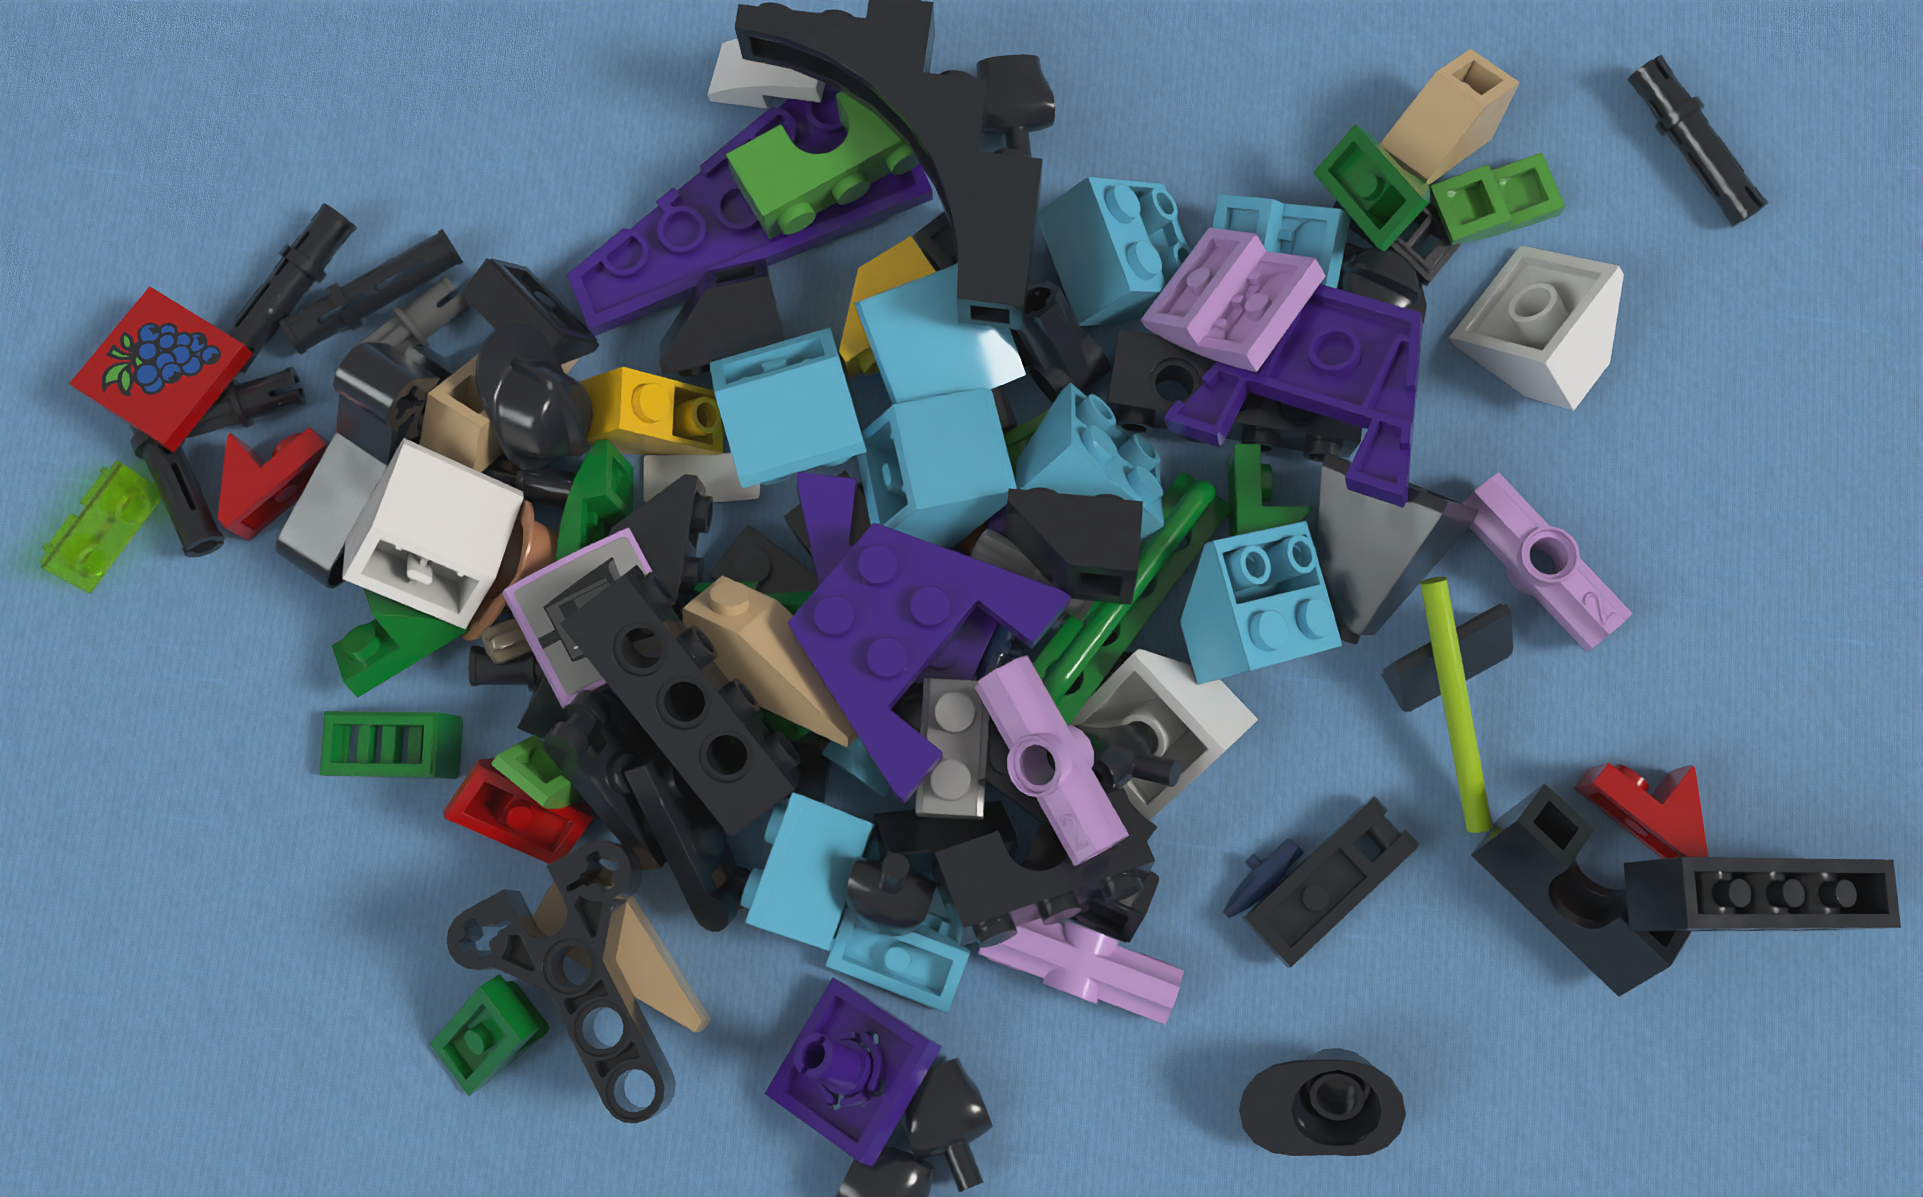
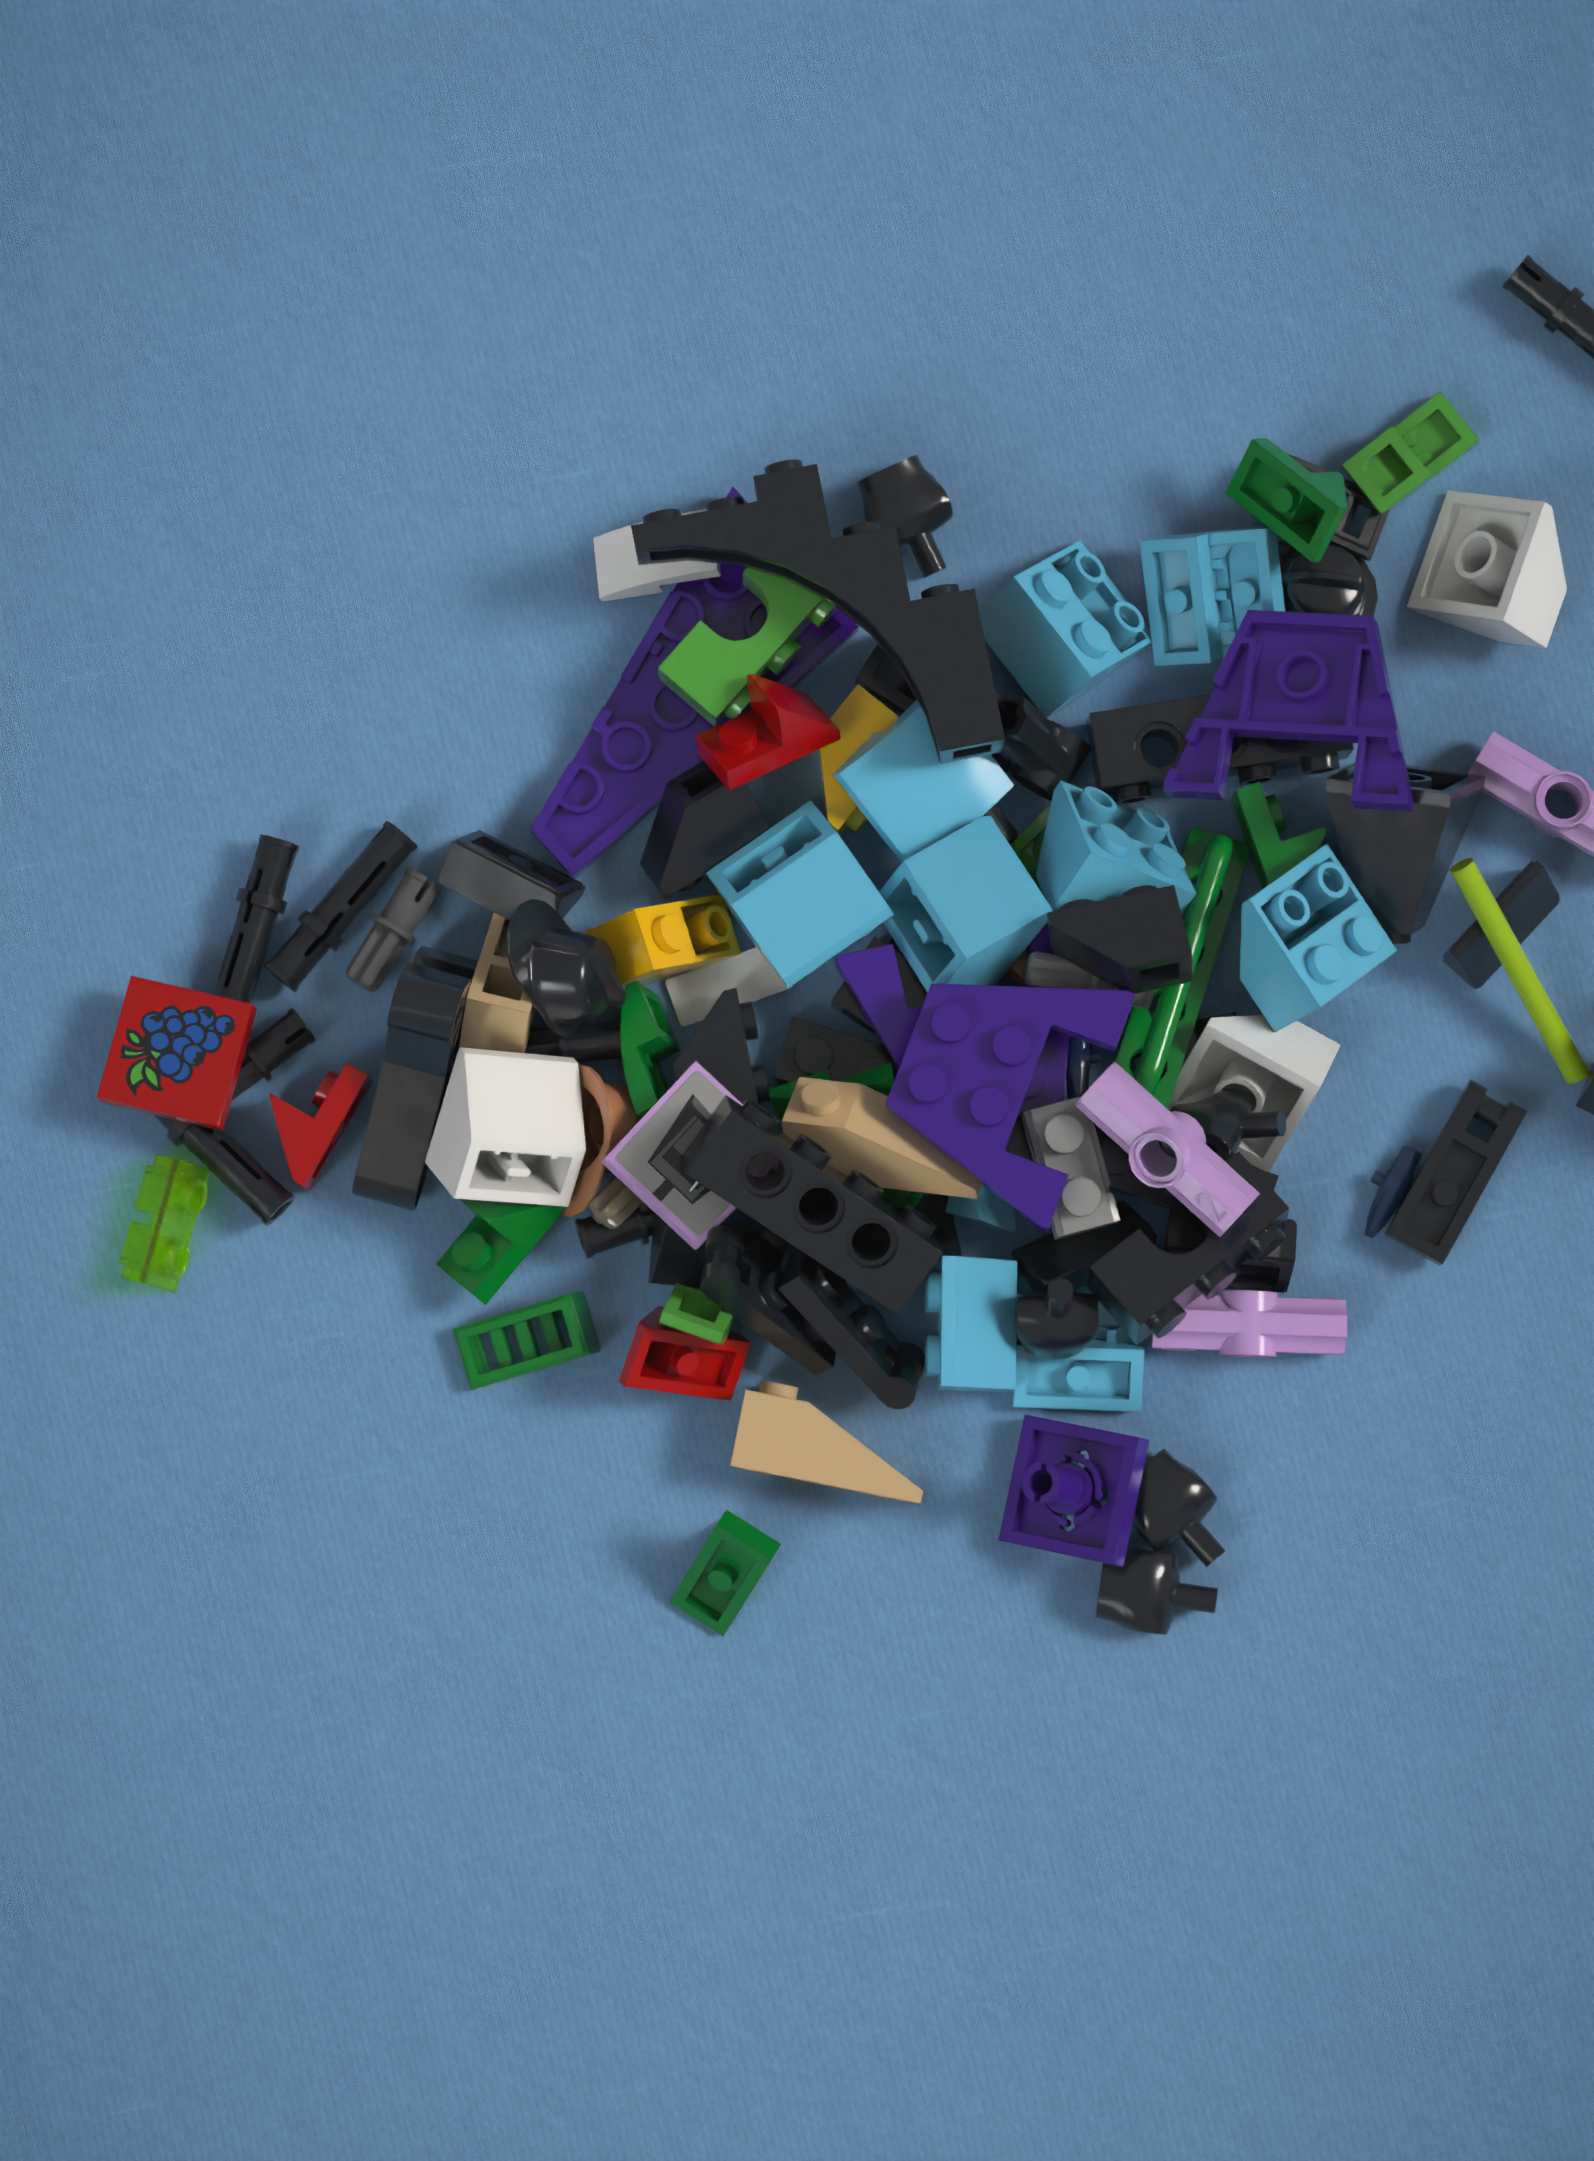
camera: 25 degrees left, 5 degrees up
(595, 925) = (801, 1439): black beam -> none
(818, 249) = (775, 732): none -> red slope
(1233, 298) = (1189, 650): lavender slope -> none
(1323, 1106) = (1509, 1379): black piece -> none
(1450, 117) = (1339, 396): tan slope -> none

